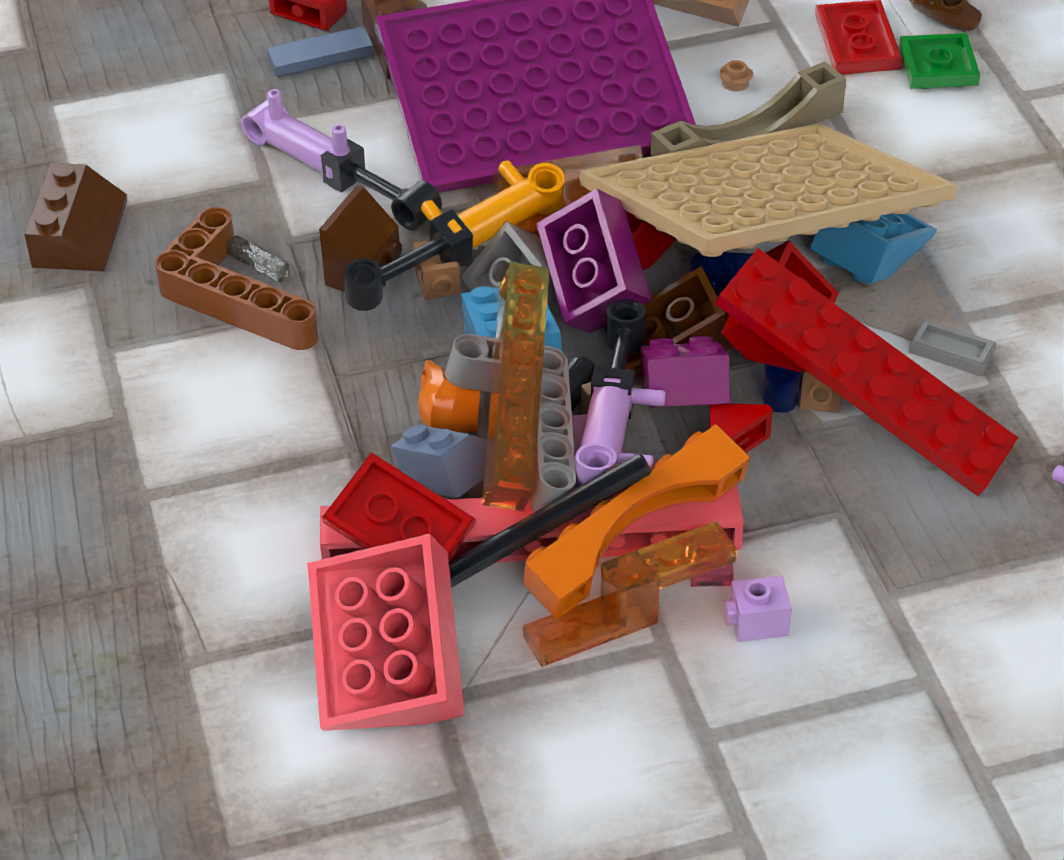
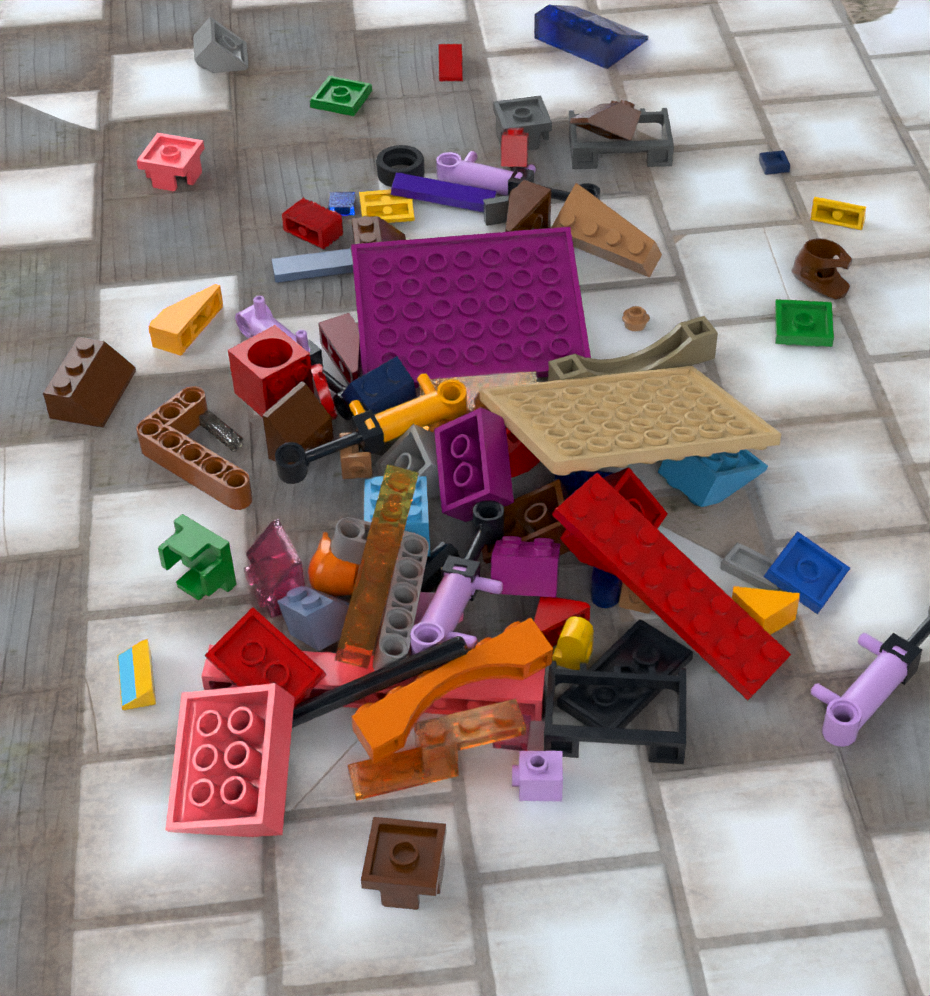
camera: 10 degrees right, 0 degrees up
(176, 132) = (182, 322): none -> light orange slope
(232, 557) = (136, 676): none -> yellow slope
(282, 403) = (203, 553): none -> green panel
(305, 179) = (268, 368): none -> red brick
(375, 407) = (273, 567): none -> clear pink slope
(380, 190) = (323, 389): none -> red tile
(386, 142) = (342, 344): none -> slope
(454, 184) = (382, 387): none -> dark blue slope
(625, 723) = (404, 861): none -> reddish brown panel
(765, 452) = (574, 643): none -> yellow leg
(829, 490) = (634, 651): none -> black tile
(858, 37) = (743, 296): red tile -> none
(895, 556) = (663, 745): none -> black hinge
(983, 386) = (767, 607): none -> light orange slope
(1014, 343) = (808, 571): none -> blue tile

